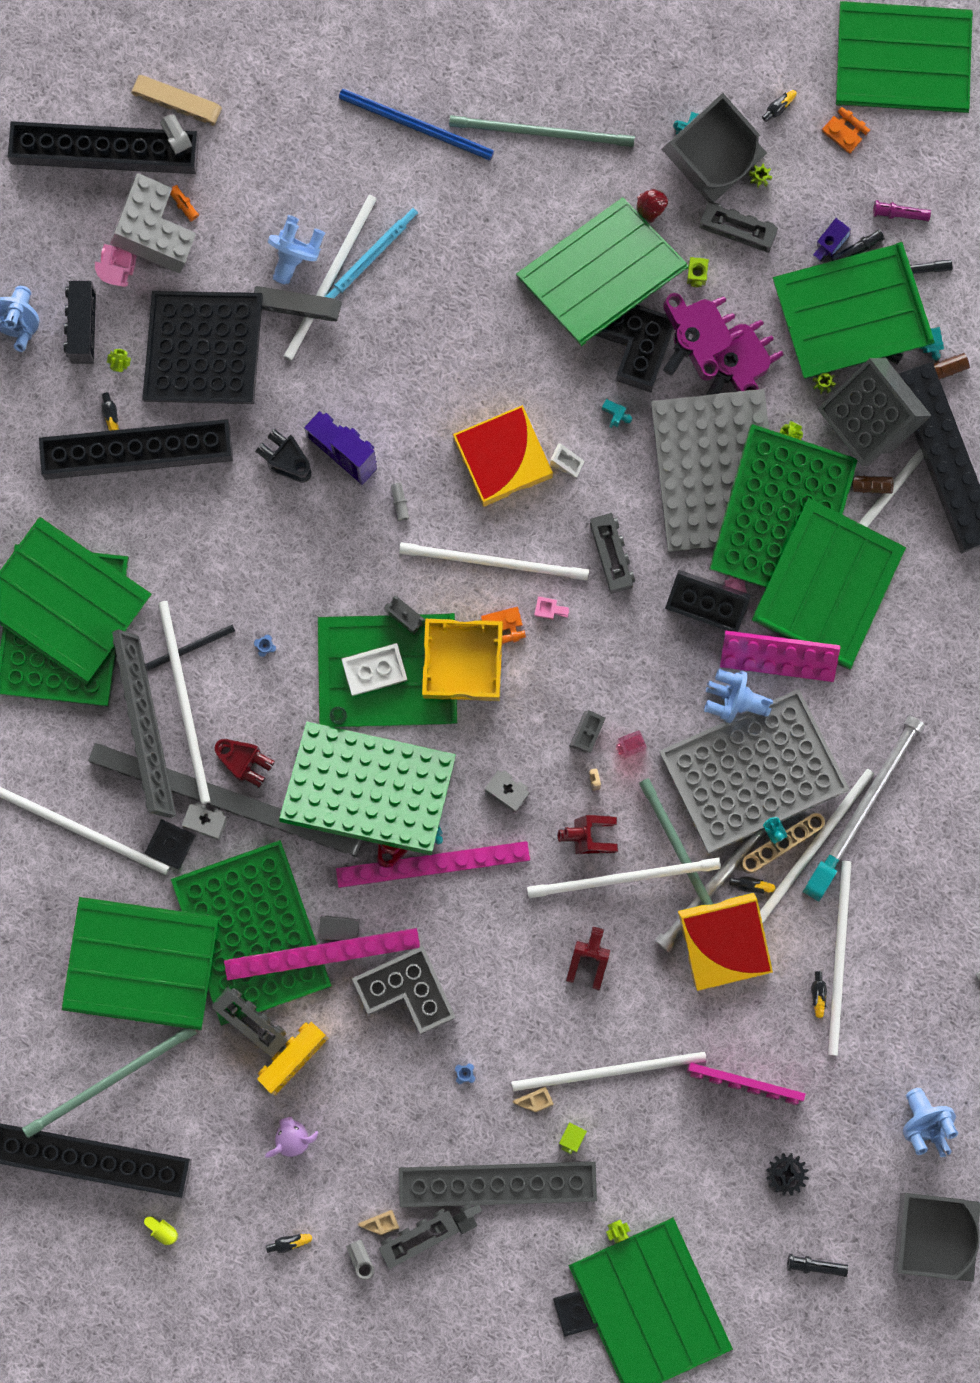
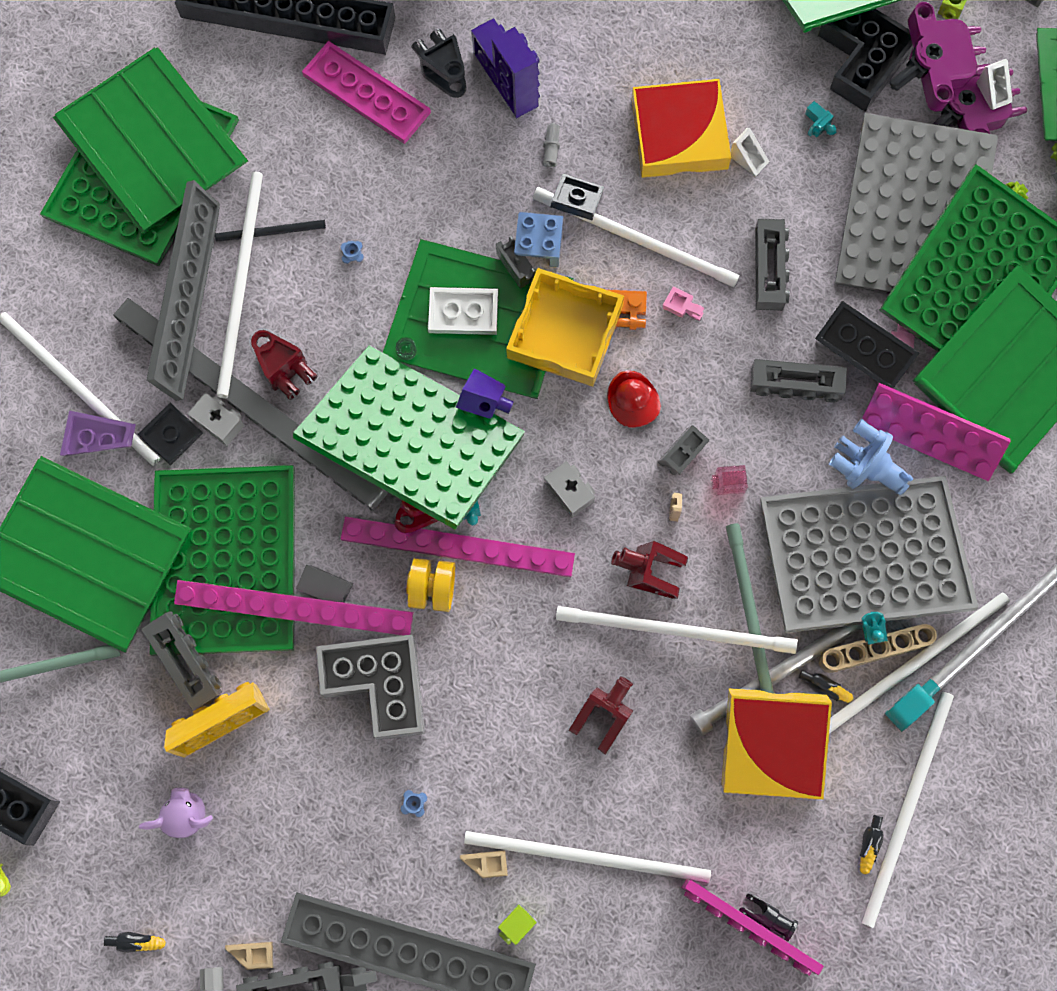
camera: 20 degrees right, 5 degrees down
(111, 863) = (92, 433): none -> medium lavender wing
(228, 501) = (366, 92): none -> dark pink plate
(415, 736) = (483, 396): none -> dark purple torso
(416, 588) = (539, 236): none -> medium blue bracket
(418, 903) = (425, 584): none -> yellow wheel
(435, 542) = (577, 197): none -> tile
(534, 701) = (633, 399): none -> red hat
(654, 655) = (830, 386): none -> dark grey brick
(751, 345) = (995, 84): none -> white slope
(759, 1072) = (771, 918): none -> black piece

